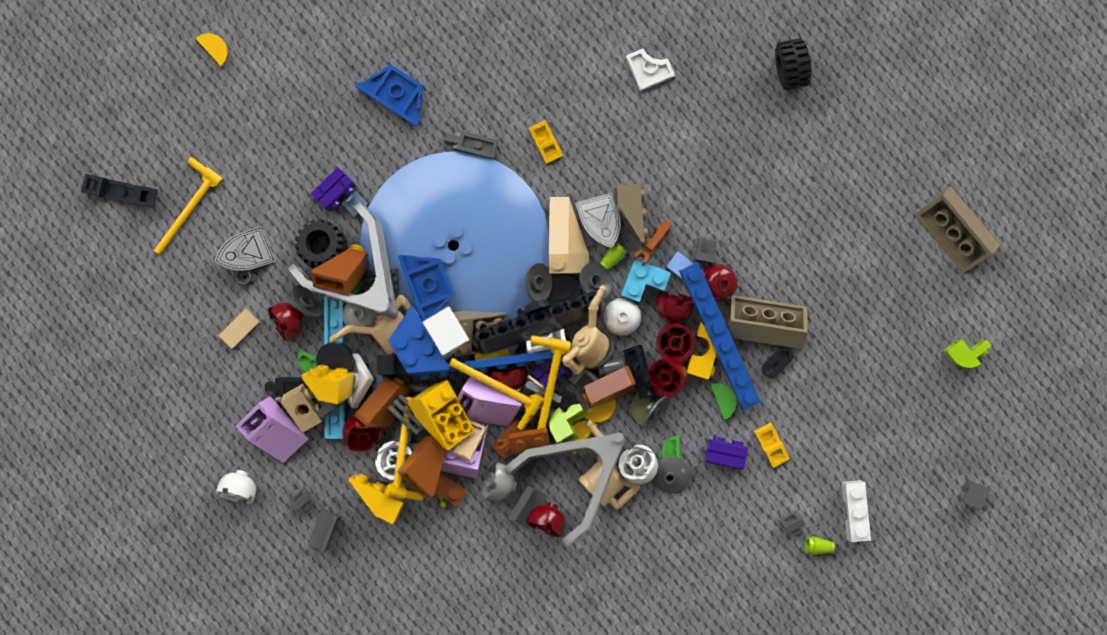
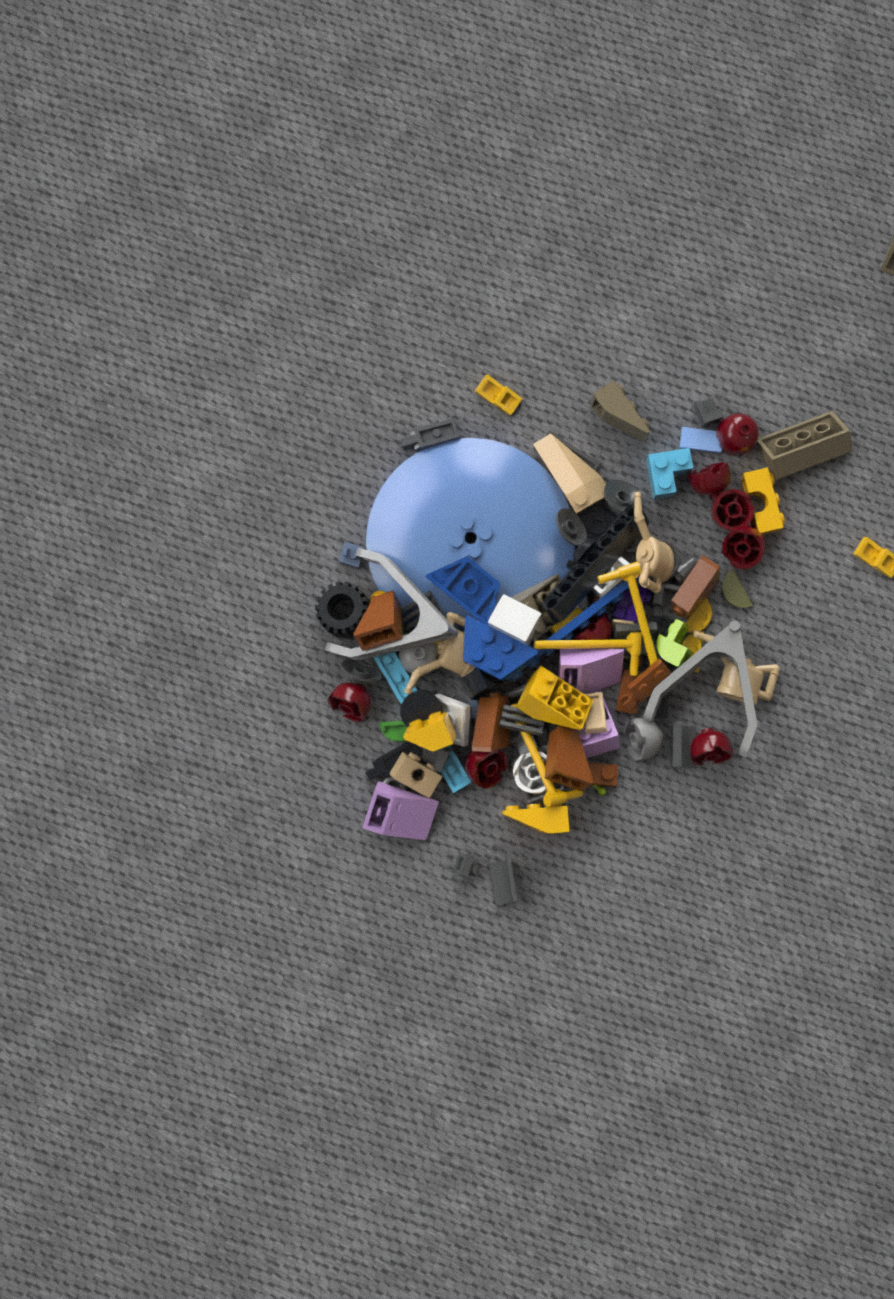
camera: 35 degrees left, 5 degrees down
(119, 191) = (119, 670): black slope -> none
(210, 179) = (199, 609): yellow bar -> none
(215, 47) = (131, 482): yellow tile -> none
(237, 487) = (397, 887): white cylinder -> none
(239, 328) = (309, 736): tan tile -> none
(244, 282) = (289, 689): dark grey plate -> none
(245, 251) = (273, 658): light grey shield -> none
(333, 189) = (324, 551): dark purple brick -> none
(395, 92) = (330, 428): blue wing -> none
(600, 219) = (593, 437): light grey shield -> none
(613, 256) = (625, 464): lime cone -> none
(622, 316) = (667, 517): white cylinder -> none
(638, 366) = (704, 546): black hinge -> none
(638, 465) = (765, 645): white cylinder -> none
(647, 70) = (556, 275): white tile -> none
(652, 244) = (656, 431): dark orange plate -> none
(654, 411) = (750, 586): dark grey dish -> none
(671, 447) = (789, 620): bright green tile -> none
(674, 467) = (793, 632): dark grey dish -> none
(719, 336) = (770, 481): blue plate -> none
(725, 399) = (808, 539): bright green tile -> none
(725, 453) = (840, 589): dark purple brick -> none
(780, 365) = (831, 475): black beam -> none
(793, 64) = (688, 193): black tyre -> none

